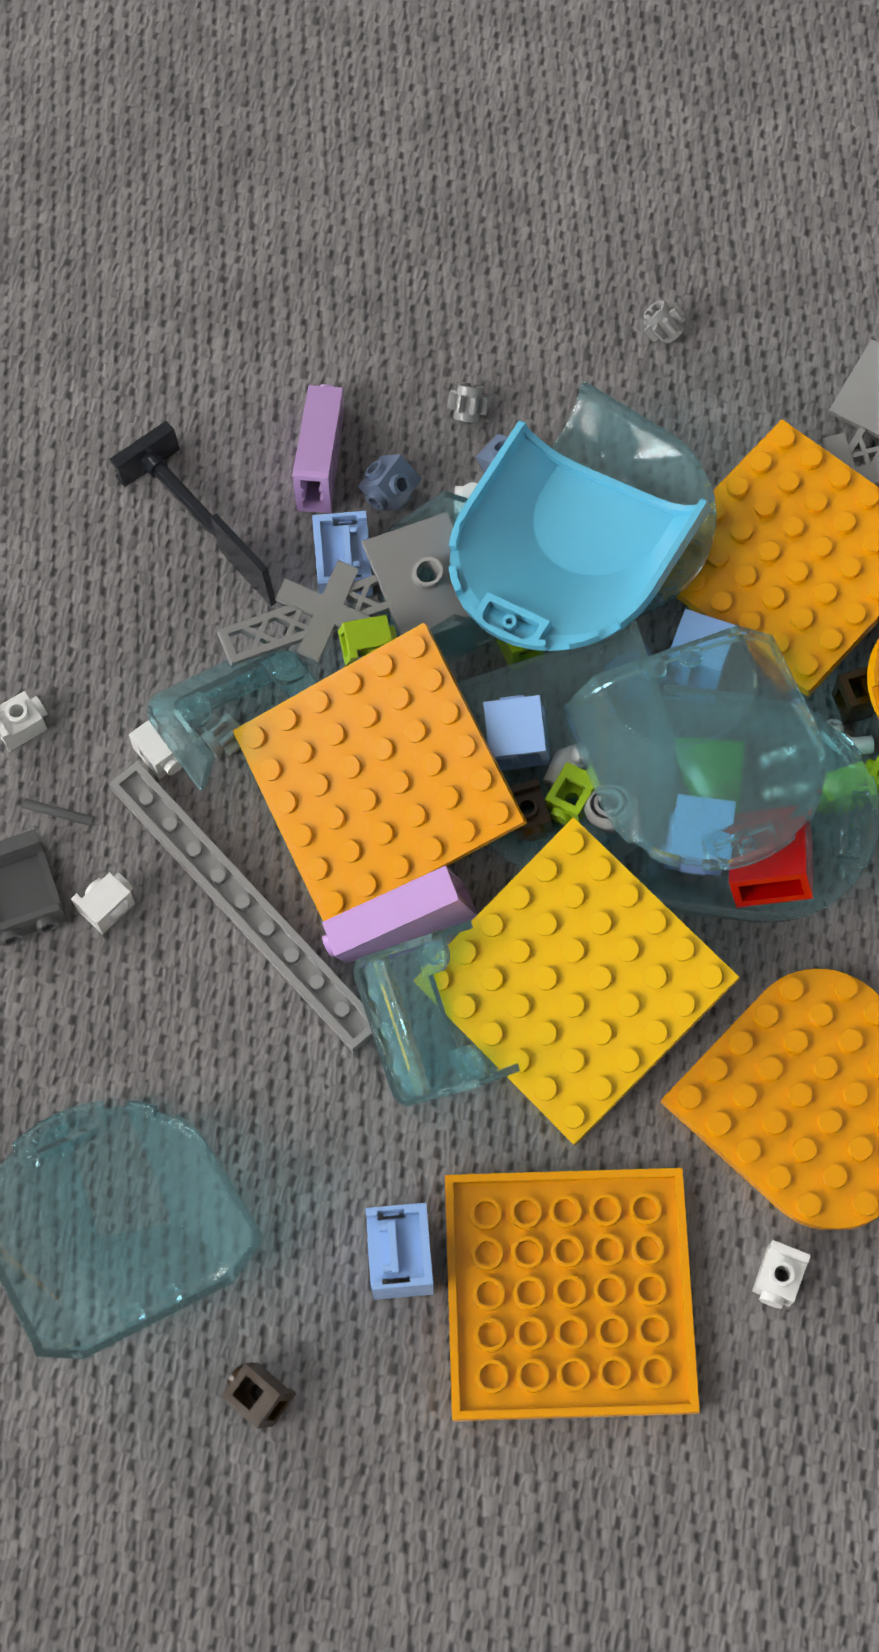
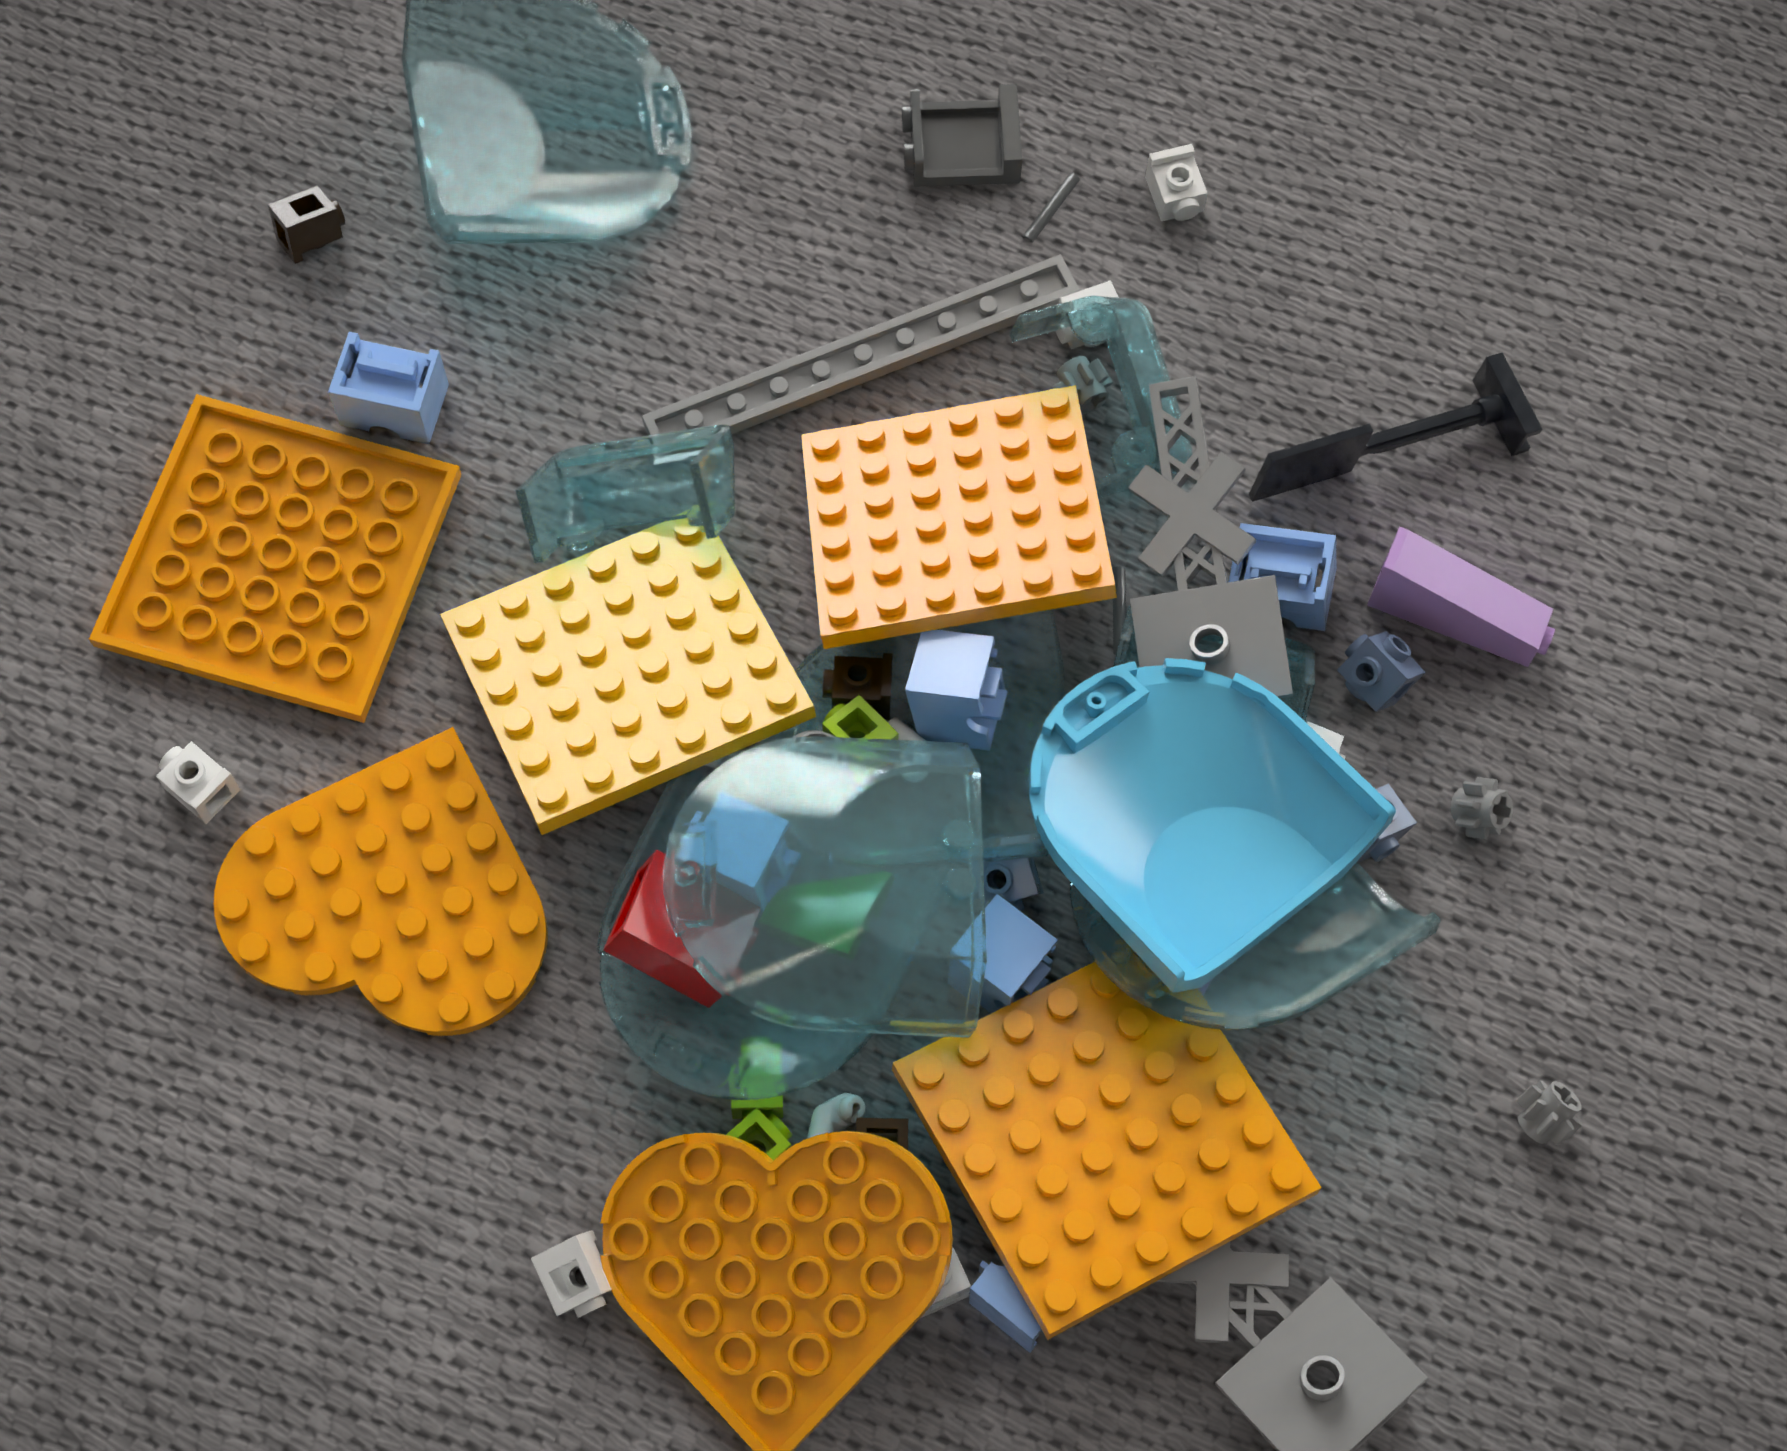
camera: 105 degrees right, 0 degrees up
(105, 901) = (914, 217): white brick -> none
(364, 636) = (1133, 540): lime brick -> none
(399, 916) = (779, 513): lavender slope -> none

